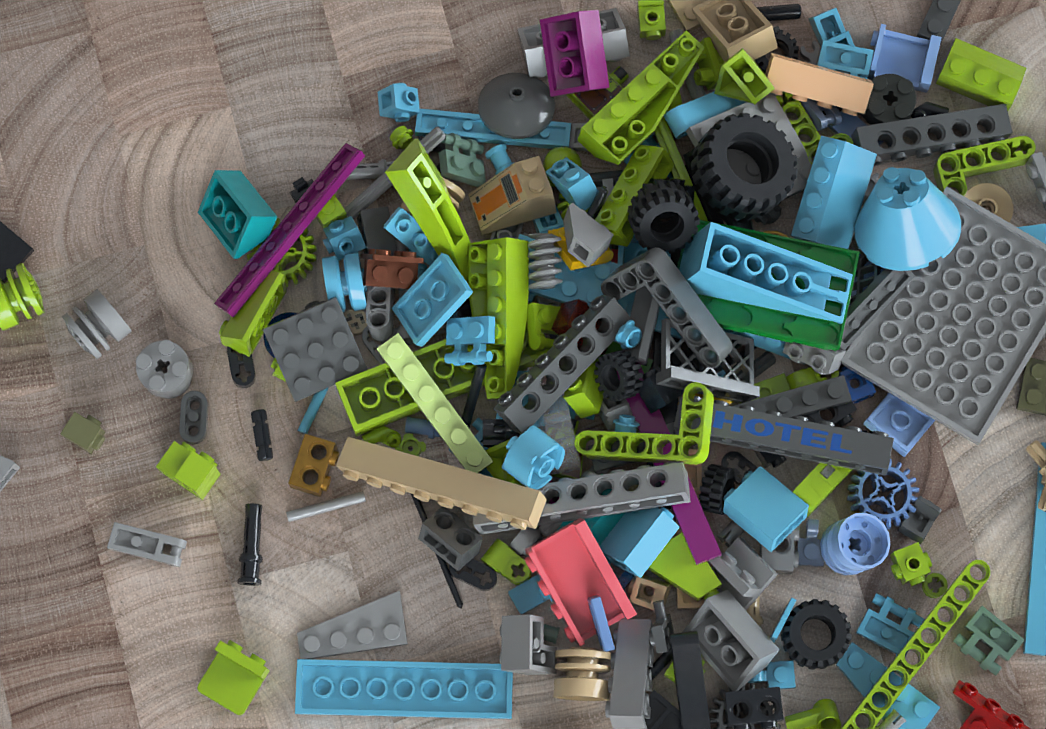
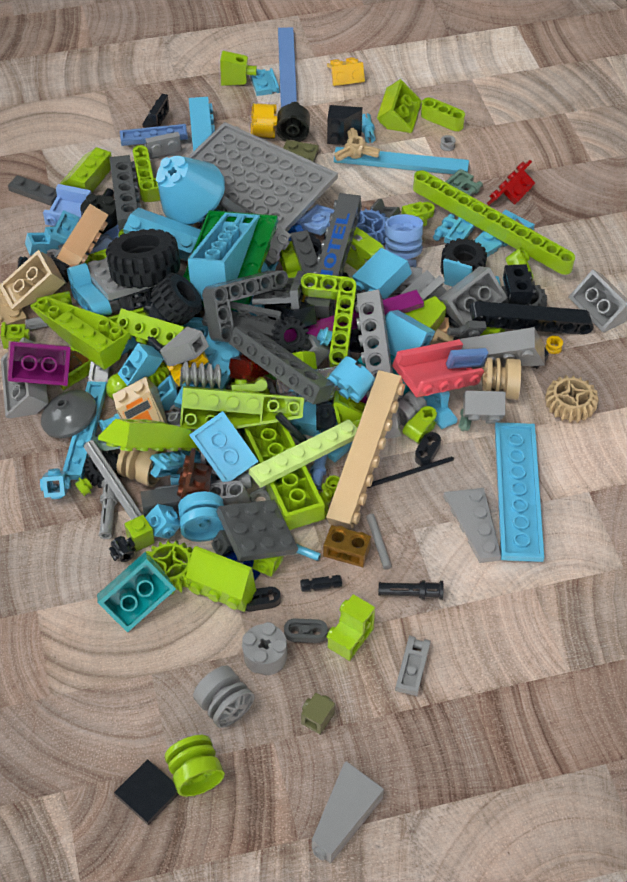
camera: 90 degrees left, 25 degrees down
(233, 677) = (517, 600): lime bracket -> none
(289, 229) = (157, 548): magenta tile -> none
(450, 538) = (404, 454): dark grey brick -> none
(470, 331) = (251, 422): medium azure plate -> none
(629, 335) = (261, 324): medium azure plate -> none
(742, 79) = (77, 264): lime slope -> none

